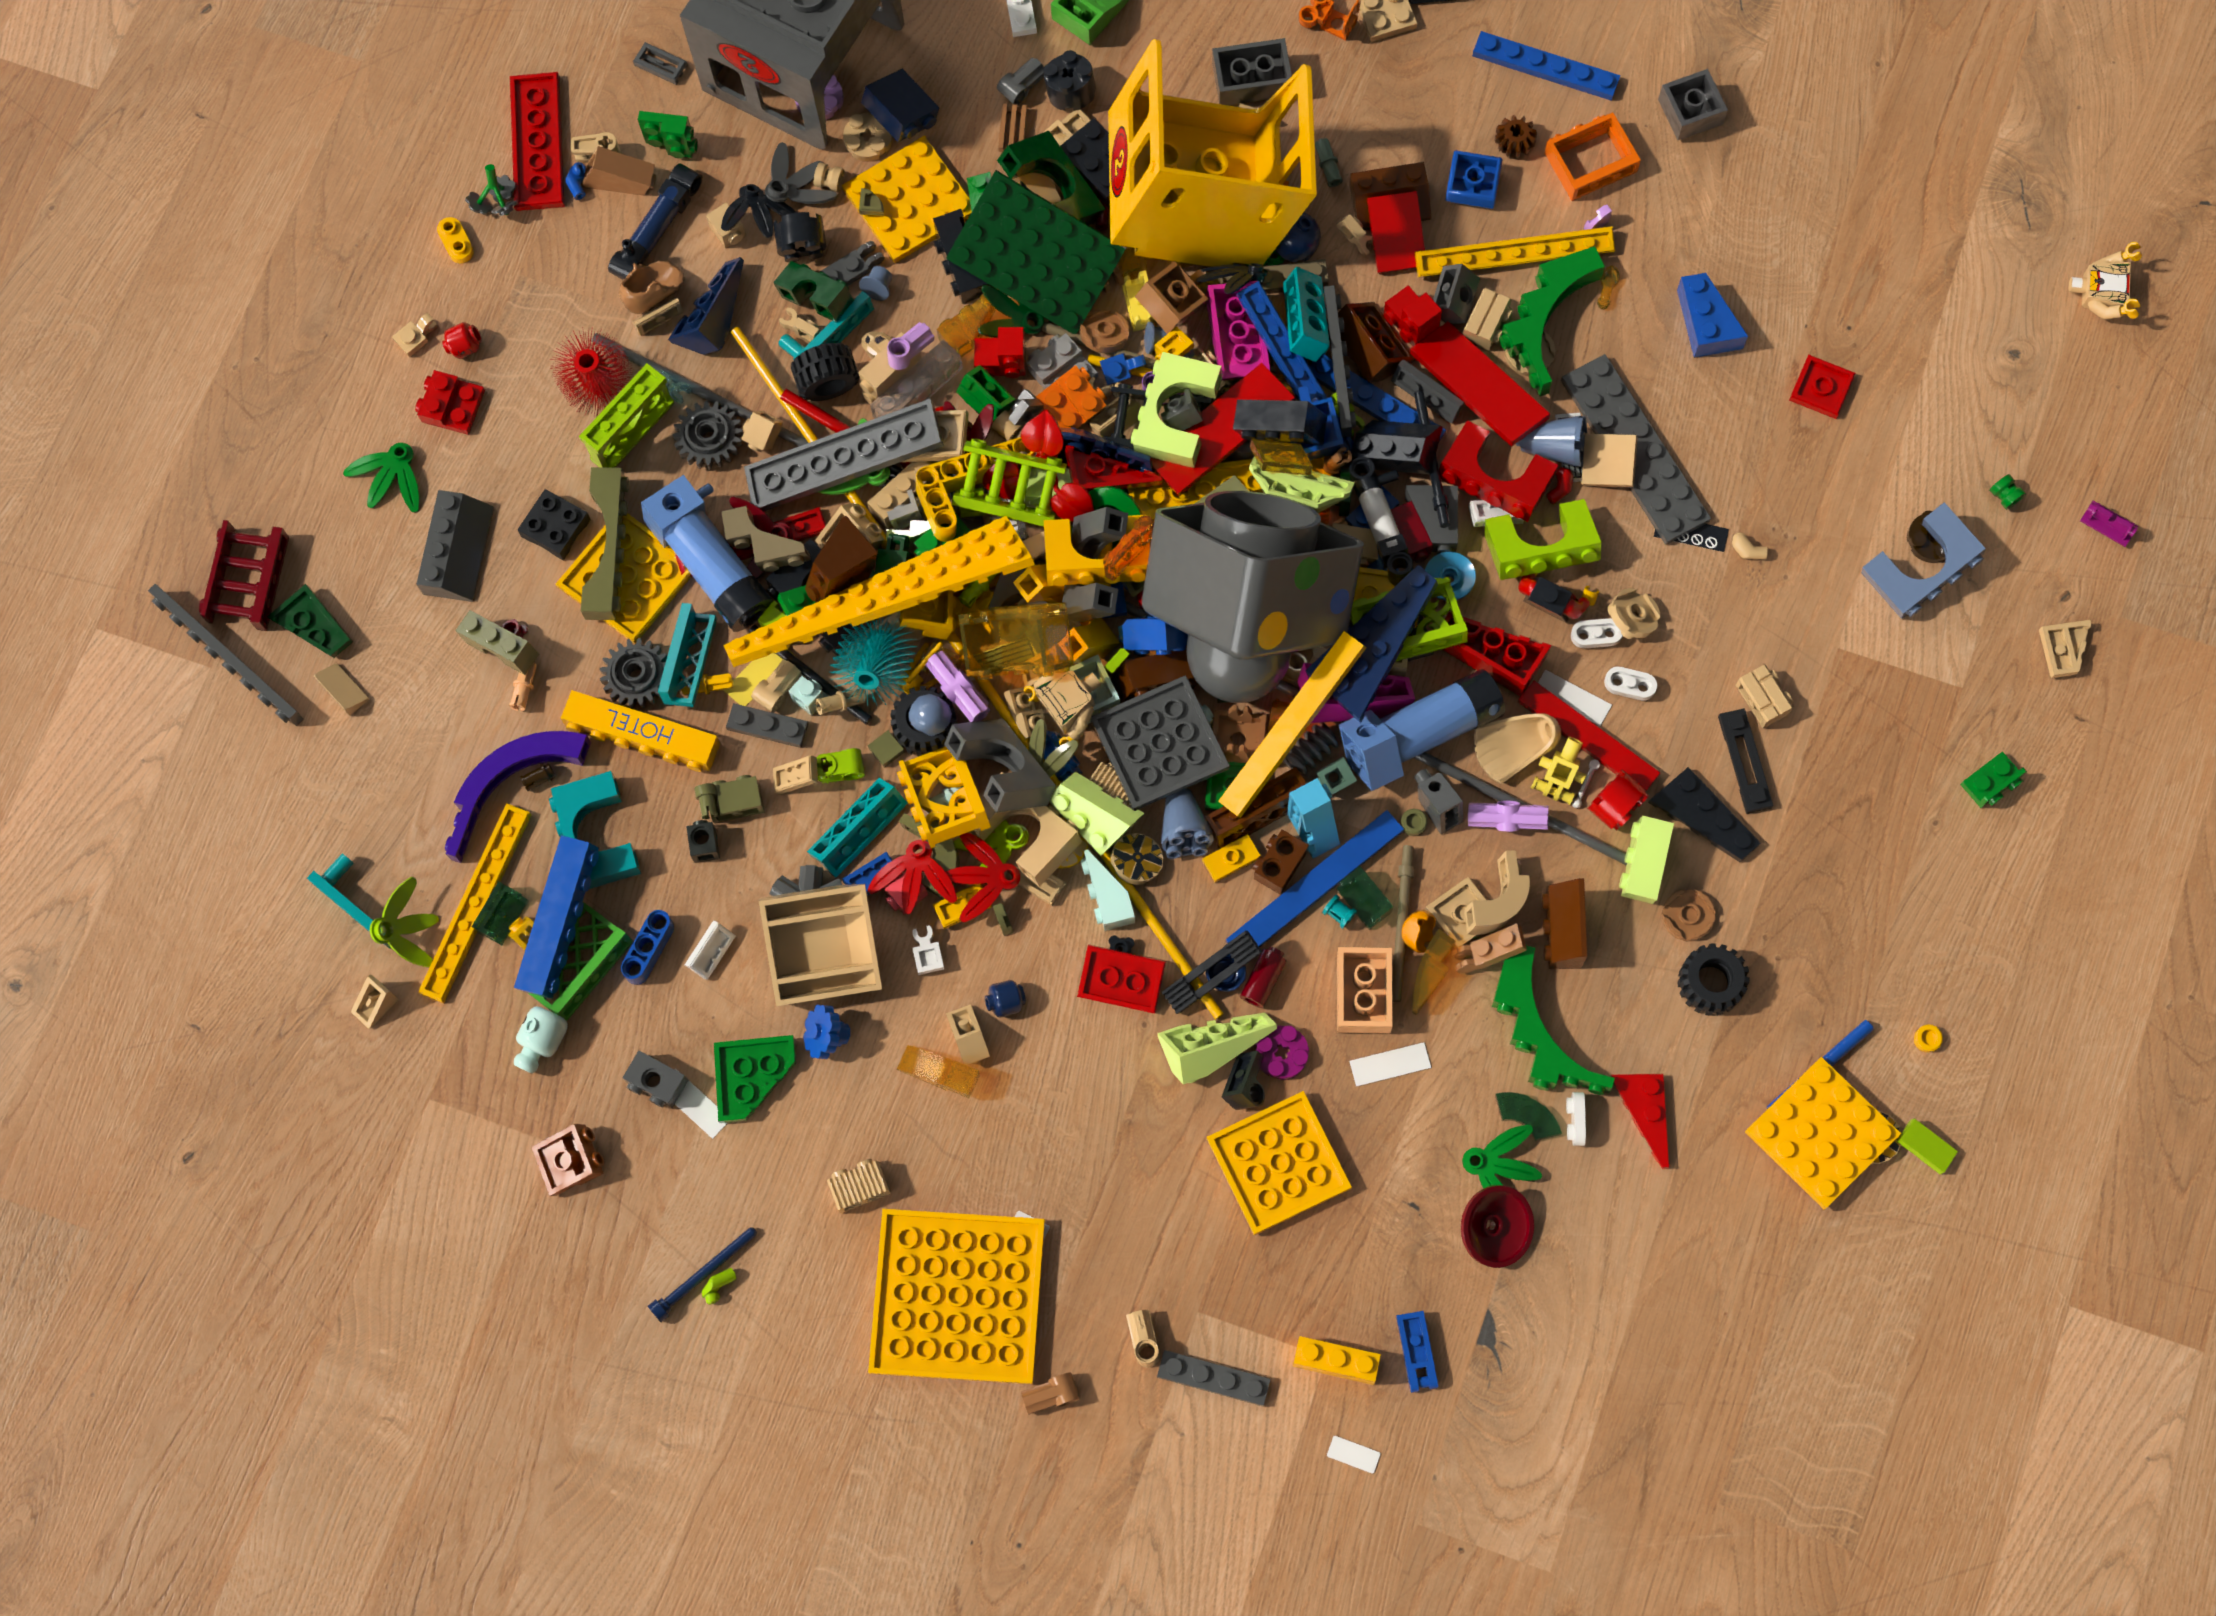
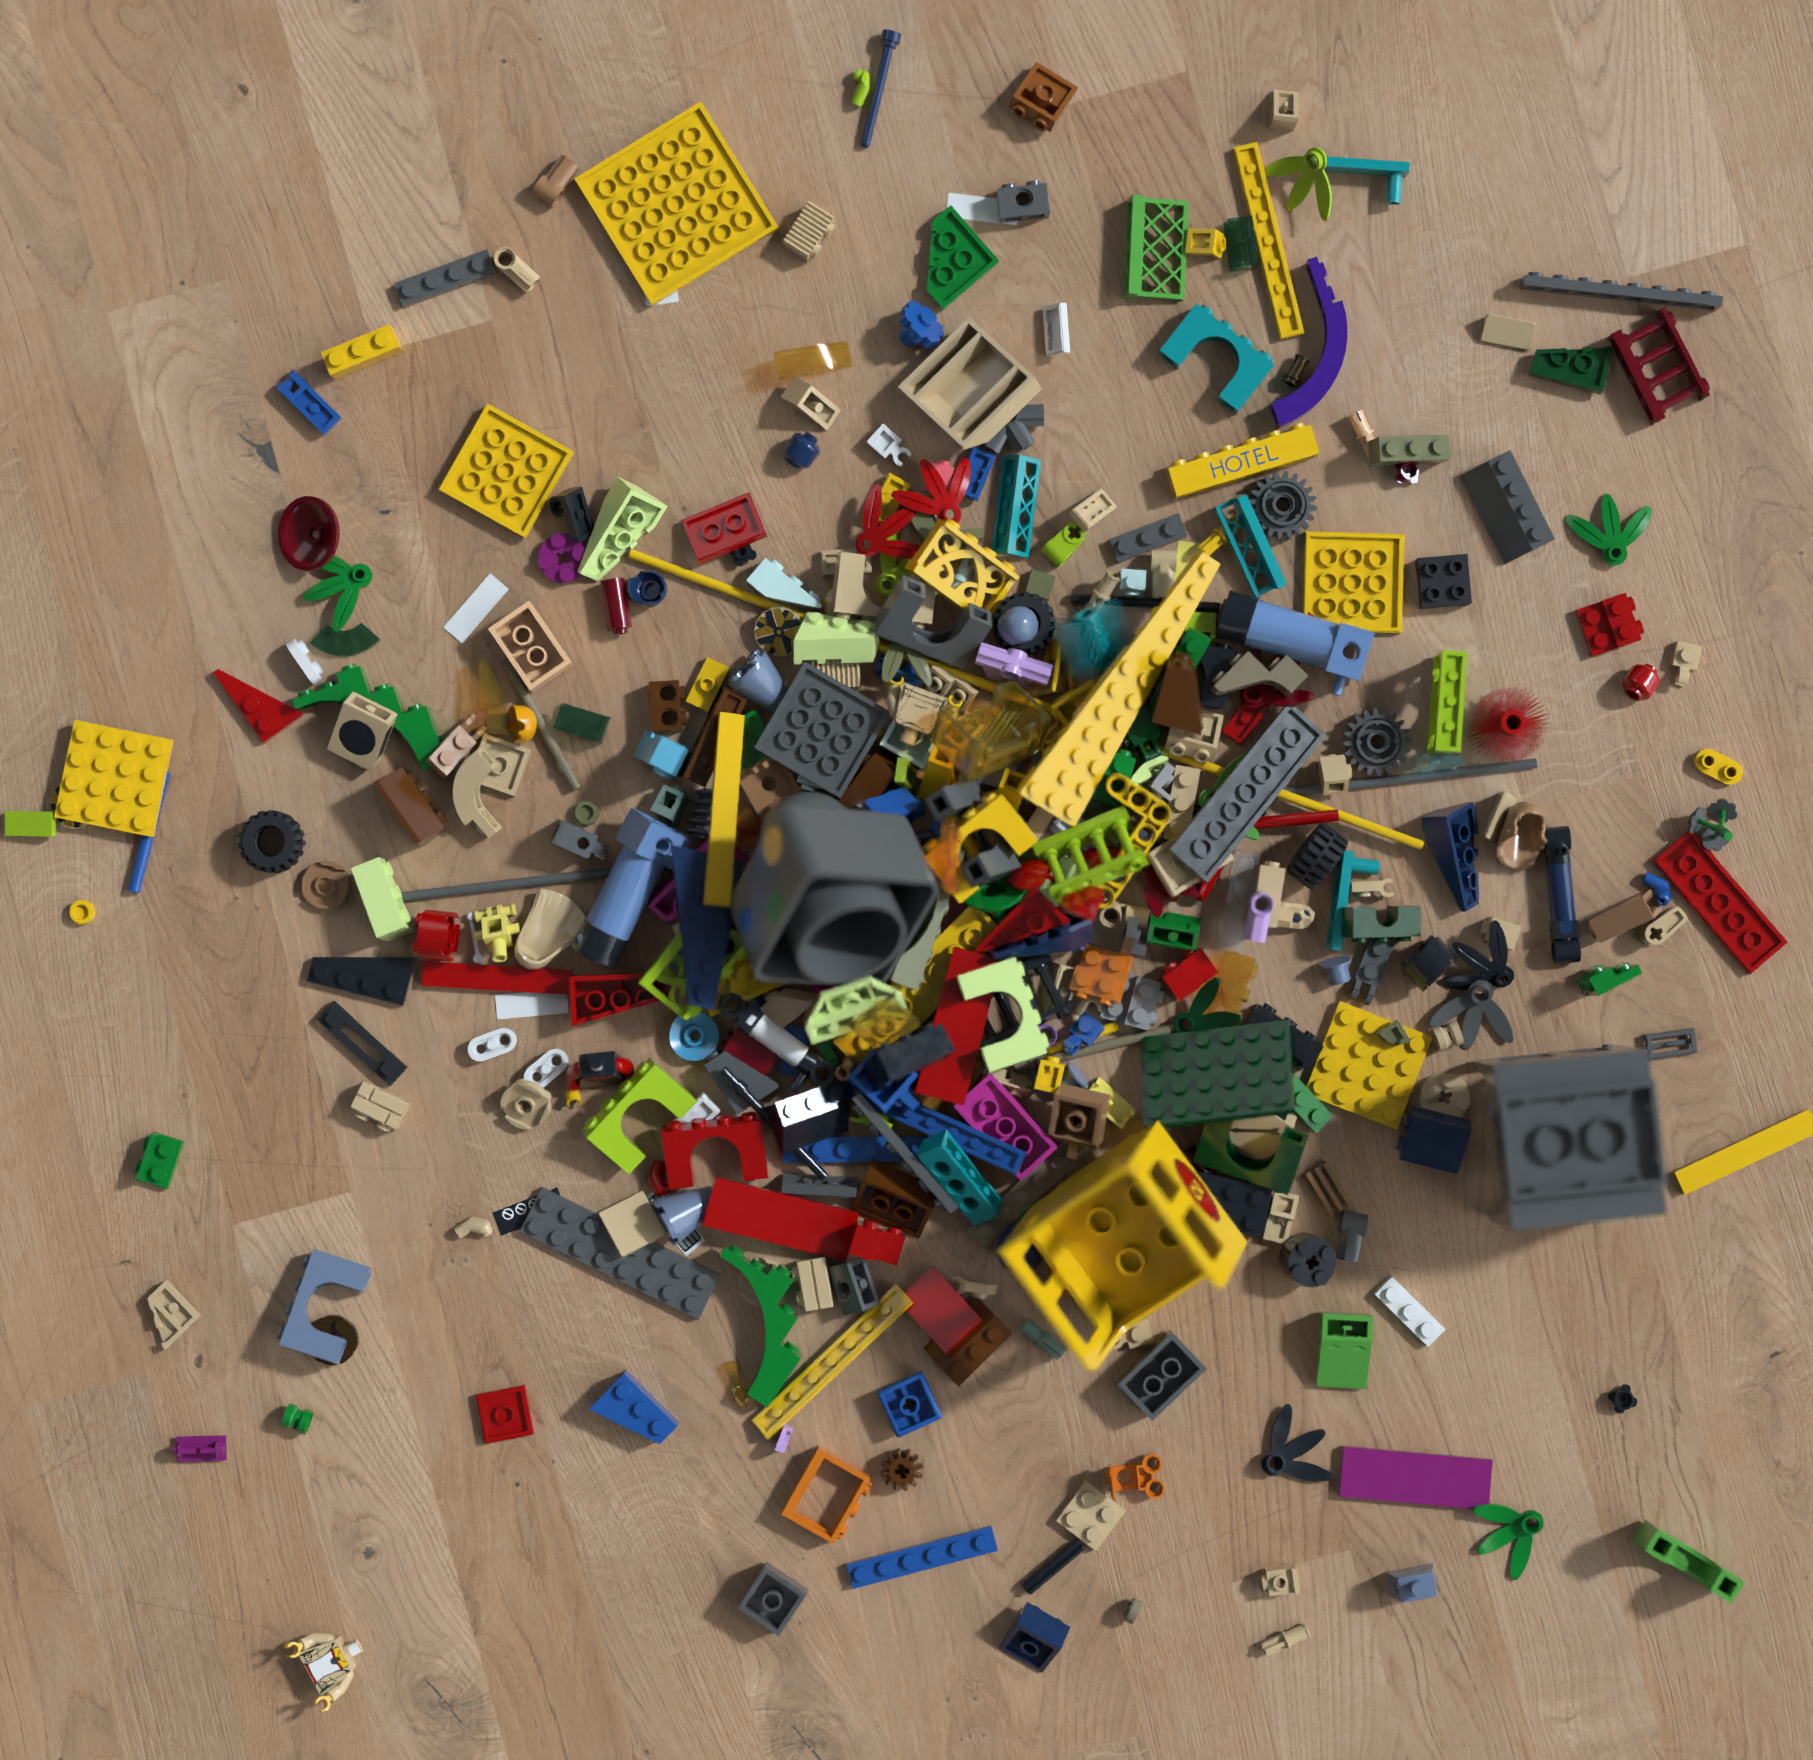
camera: 145 degrees right, 15 degrees up
(539, 1036) = (1135, 169): light aqua piece -> none
(557, 917) = (1189, 266): blue brick -> none
(600, 592) = (1416, 633): olive arch -> none
(647, 934) = (1109, 286): blue beam -> none
(706, 851) = (1122, 399): pearl dark grey brick -> none
(730, 799) = (1129, 456): olive hinge -> none
(1002, 918) = (849, 511): olive tile -> none
(1104, 331) = (1119, 1056): medium nougat tile -> none
(1182, 412) = (997, 1016): flat silver brick -> none
(1240, 275) = (1045, 1181): black plant -> none
(1242, 950) = (640, 606): black container -> none
(1321, 879) = (628, 708): blue tile -> none
(1339, 911) = (594, 698): teal bush -> none
(1353, 1454) = (305, 296): white sticker -> none
(1508, 816) = (514, 865): lavender piece -> none
(1566, 1016) = (362, 731): none -> tan brick

